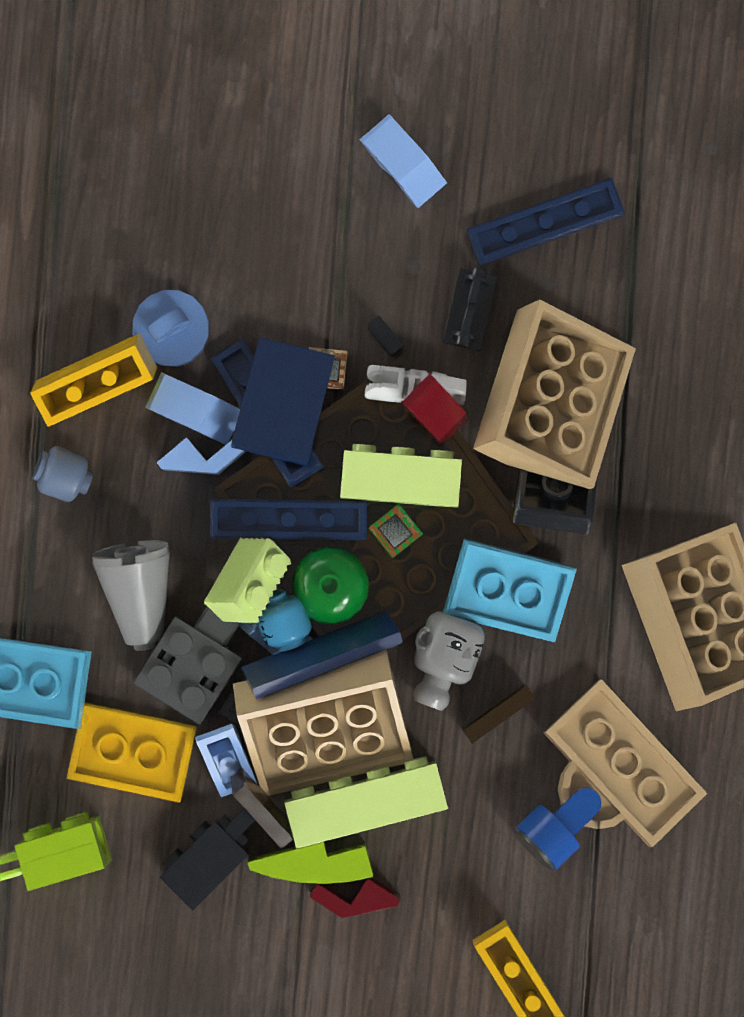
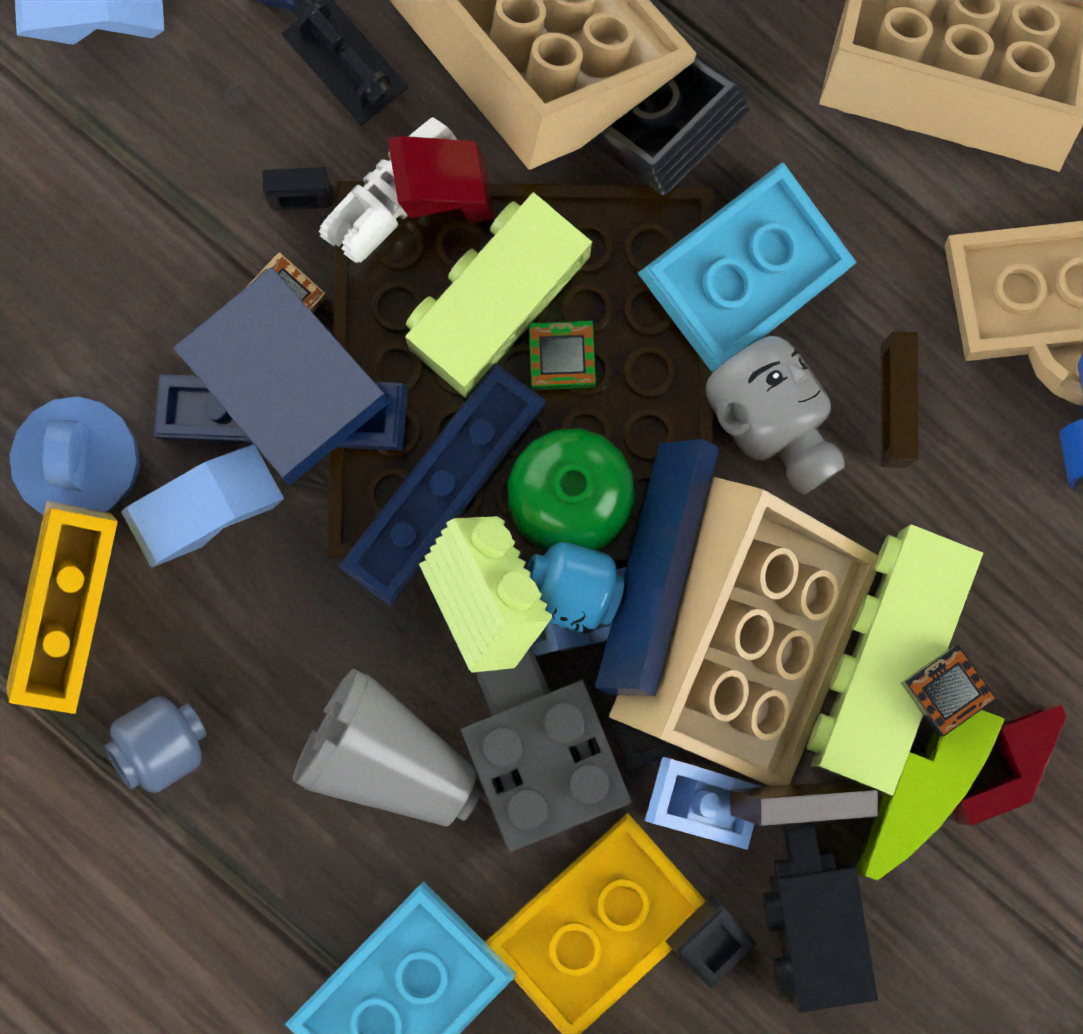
camera: 60 degrees left, 5 degrees down
(163, 811) = (711, 942): none -> black tile
(188, 459) = (265, 560): light blue slope -> none
(365, 839) = (948, 690): none -> tile

